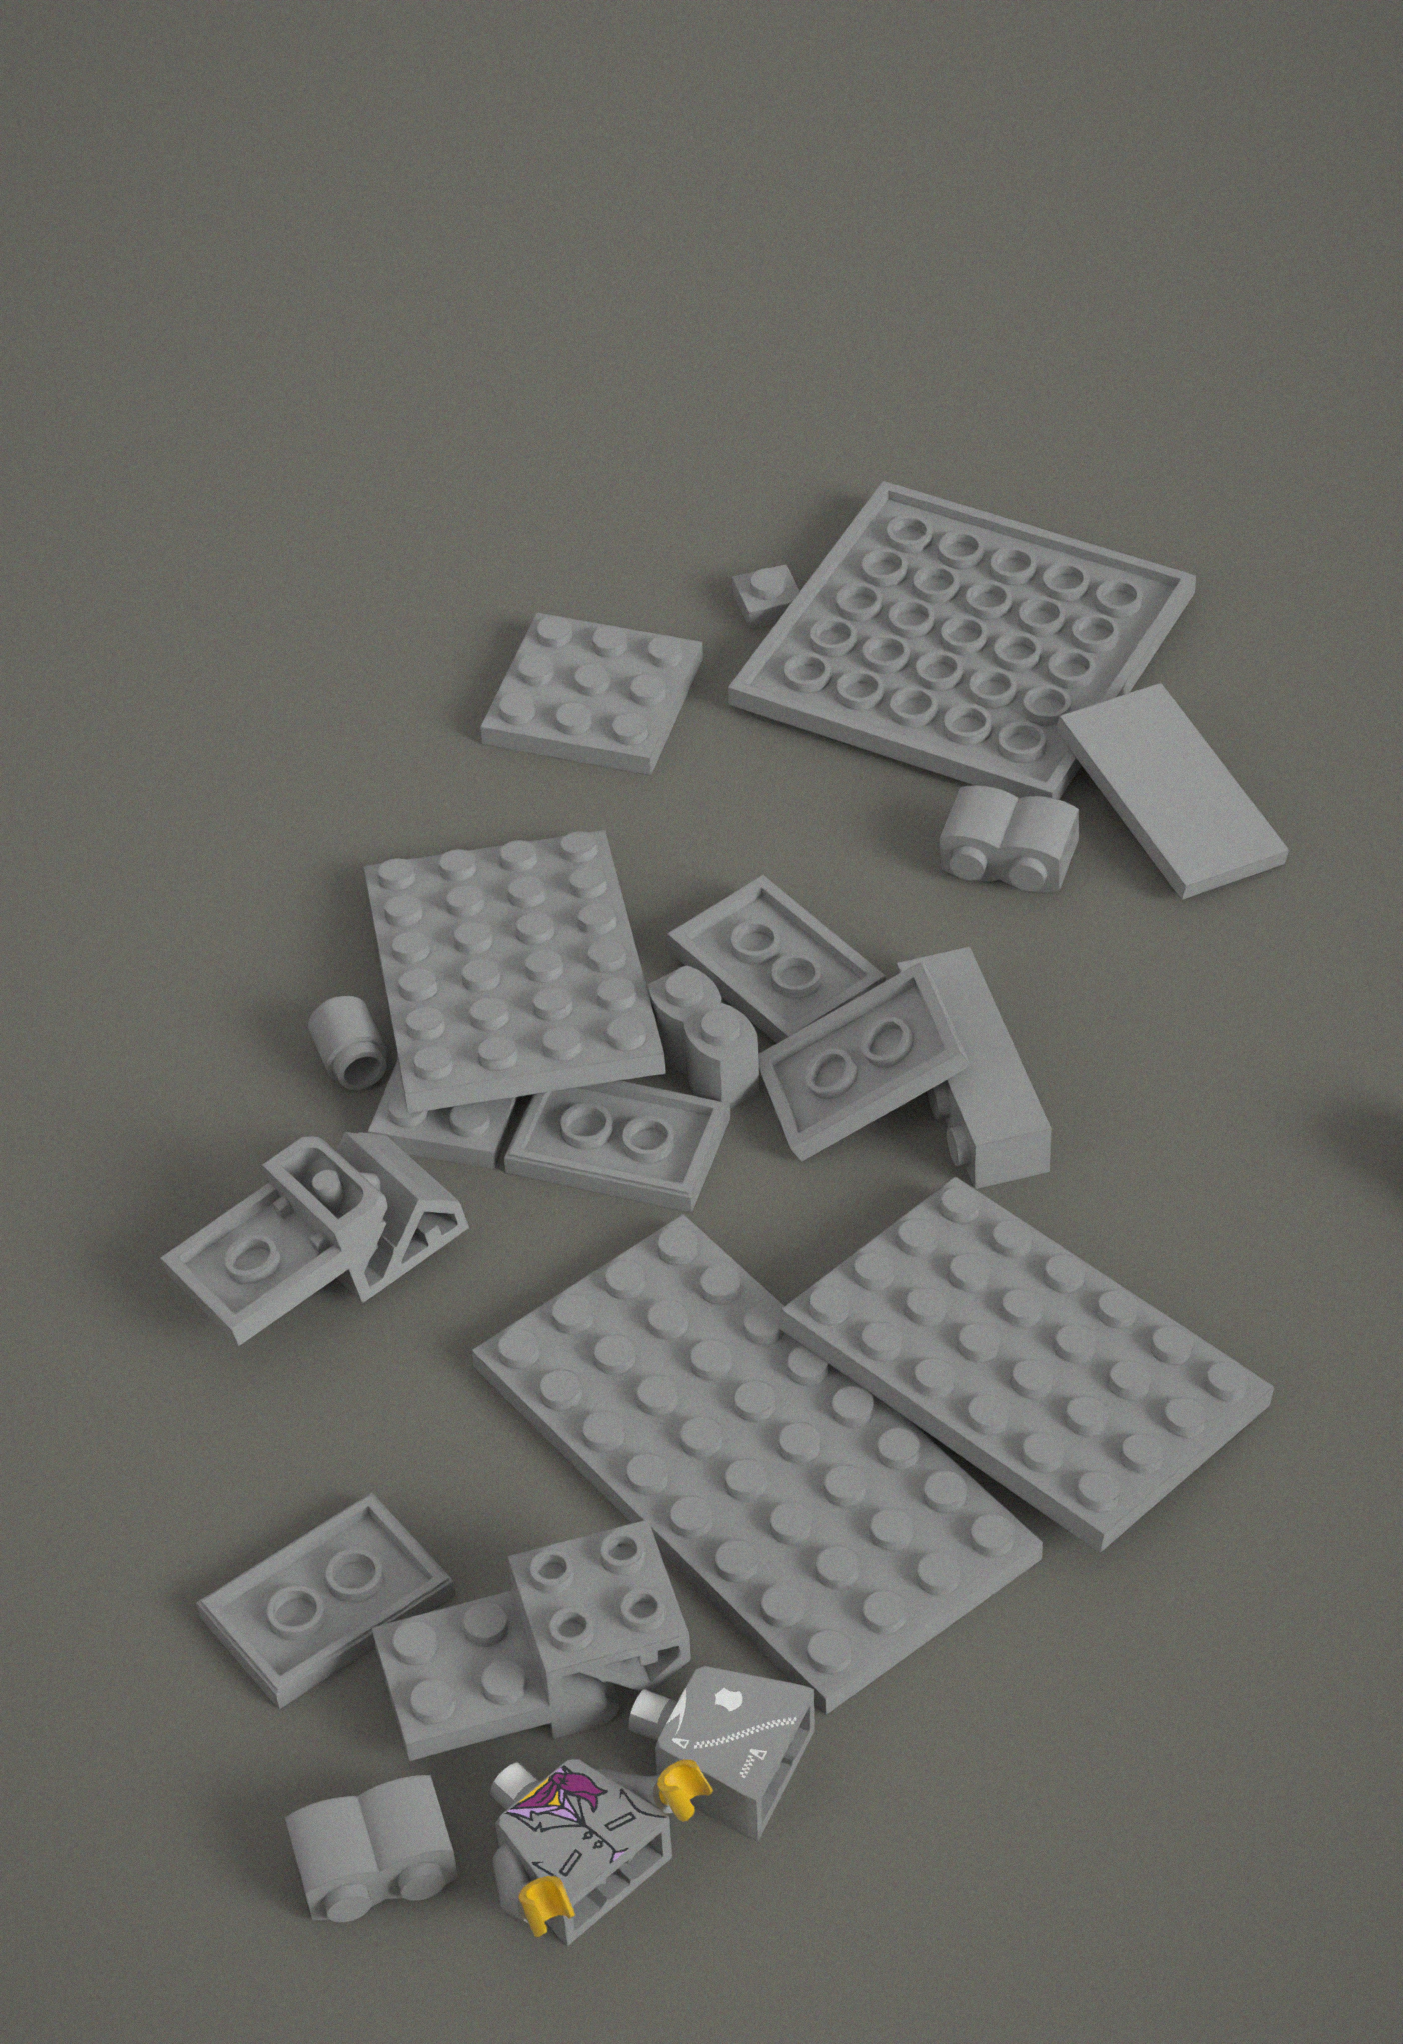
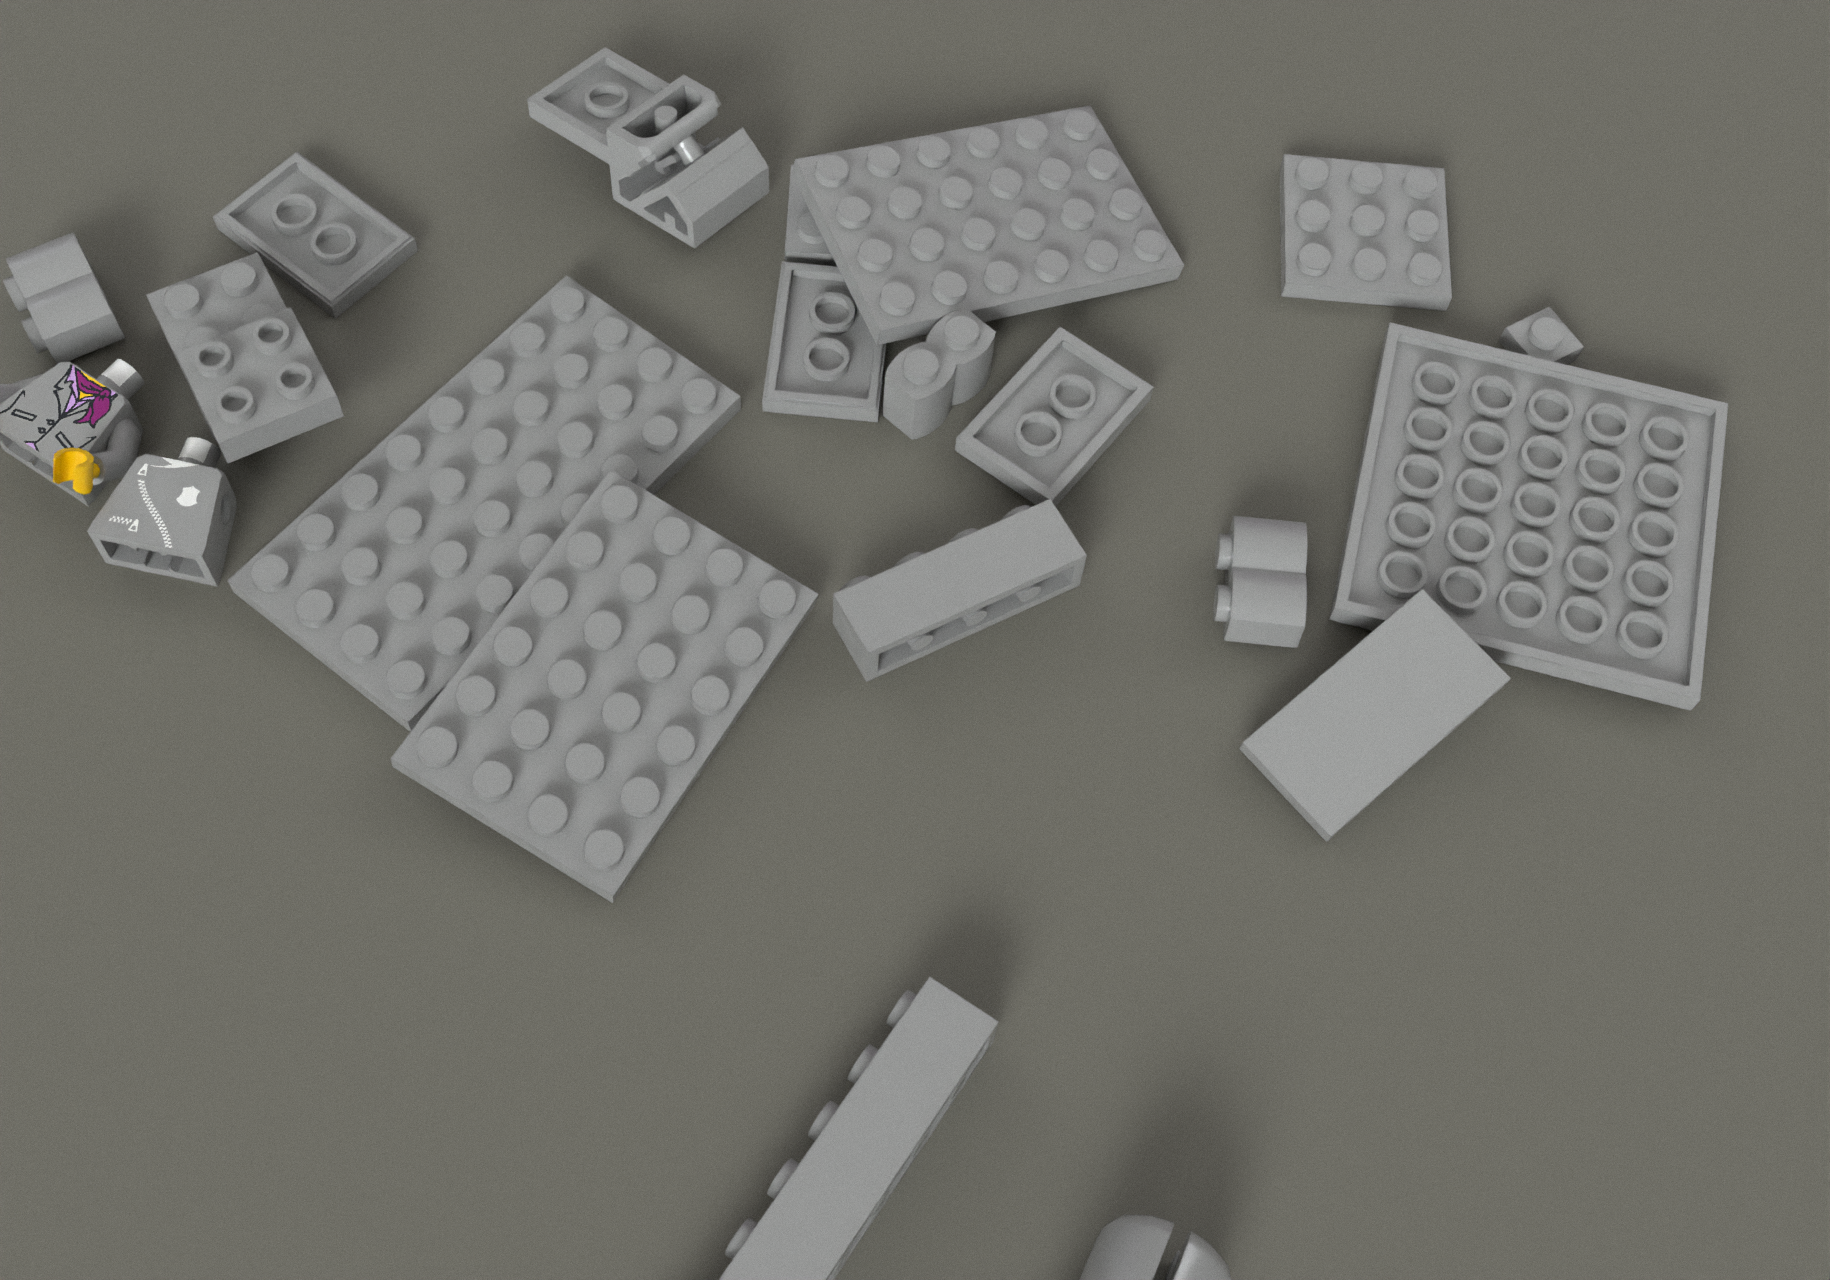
camera: 70 degrees right, 15 degrees up
(348, 1042) = (882, 123): light grey brick -> none
(862, 1061) = (925, 492): light grey plate -> none

